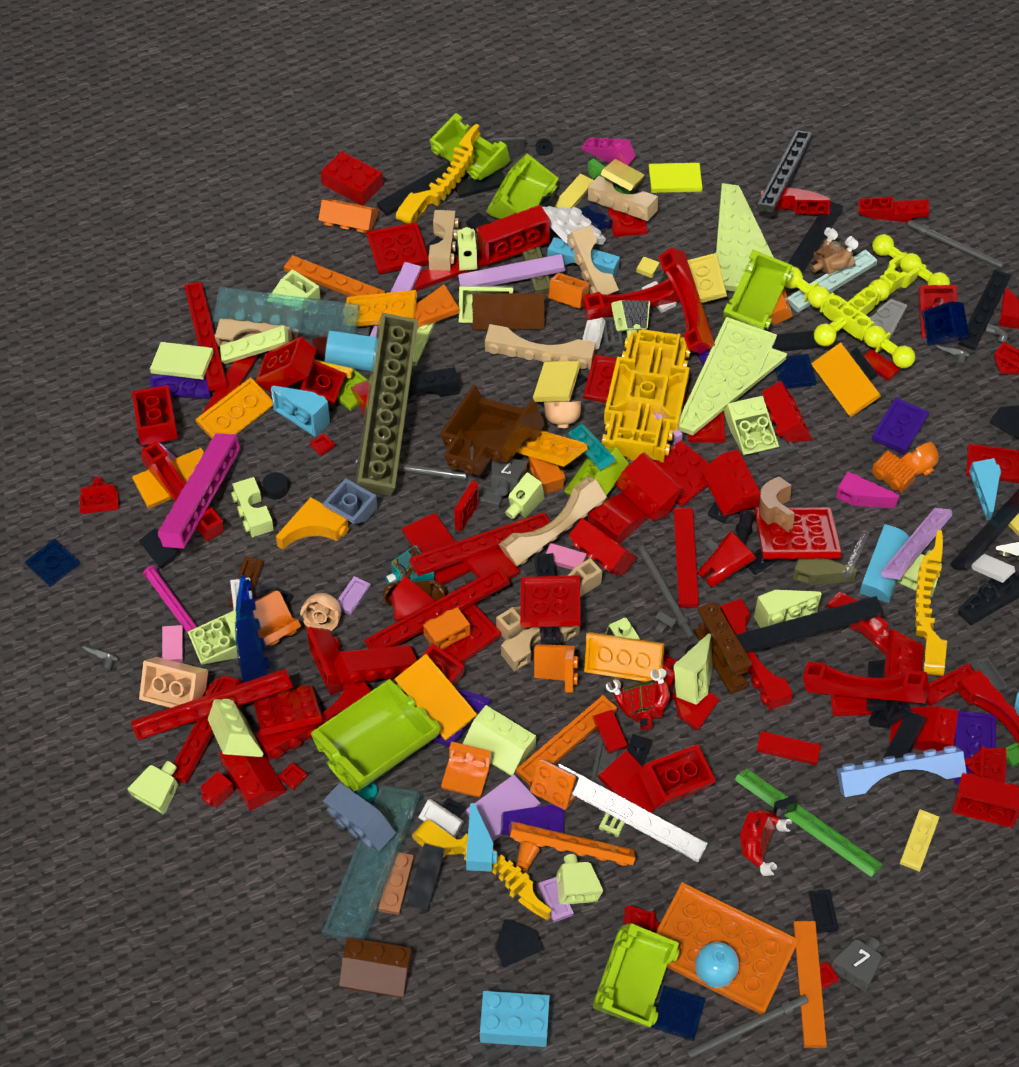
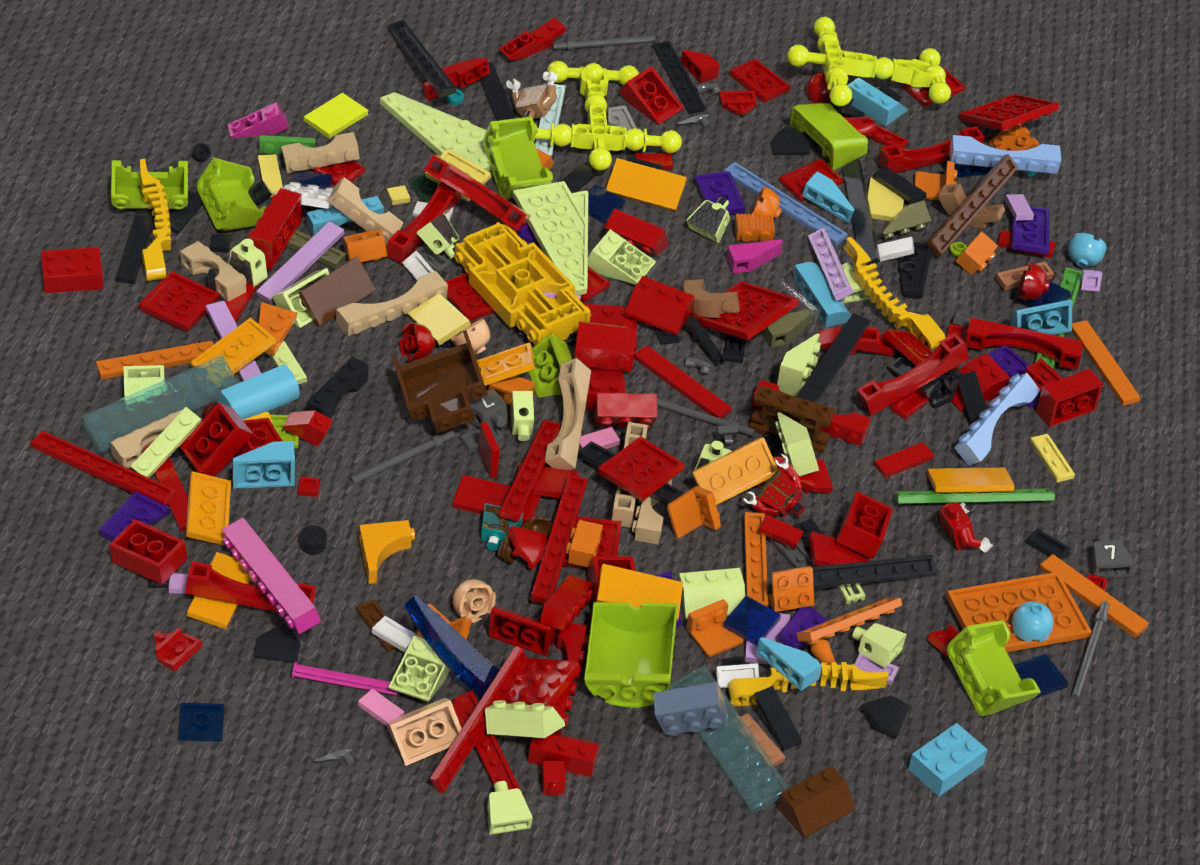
camera: 50 degrees left, 10 degrees down
(181, 360) = (114, 497): yellowish green tile -> none
(256, 519) = (330, 574): yellowish green arch -> none
(293, 776) = (593, 729): red tile -> none
(348, 215) = (106, 301): orange slope -> none
(352, 502) = (396, 505): sand blue slope -> none
(353, 595) = (473, 570): lavender tile -> none
(386, 404) = (343, 413): olive brick -> none
(500, 785) = (751, 620): none -> clear blue tile
(519, 389) = (416, 338): none -> red cylinder
(596, 451) = (541, 345): teal tile -> none
(622, 174) = (301, 133): light yellow tile -> none
(726, 560) = (719, 359): red piece -> none
(782, 217) = (456, 98): none -> teal tile
(785, 806) = (957, 490): black tile -> none
(821, 806) = (970, 480): none -> light orange tile
(862, 441) = (710, 219): none -> torso
(945, 323) = (670, 101): clear blue slope -> none
(949, 470) = (787, 204): none -> medium blue tile

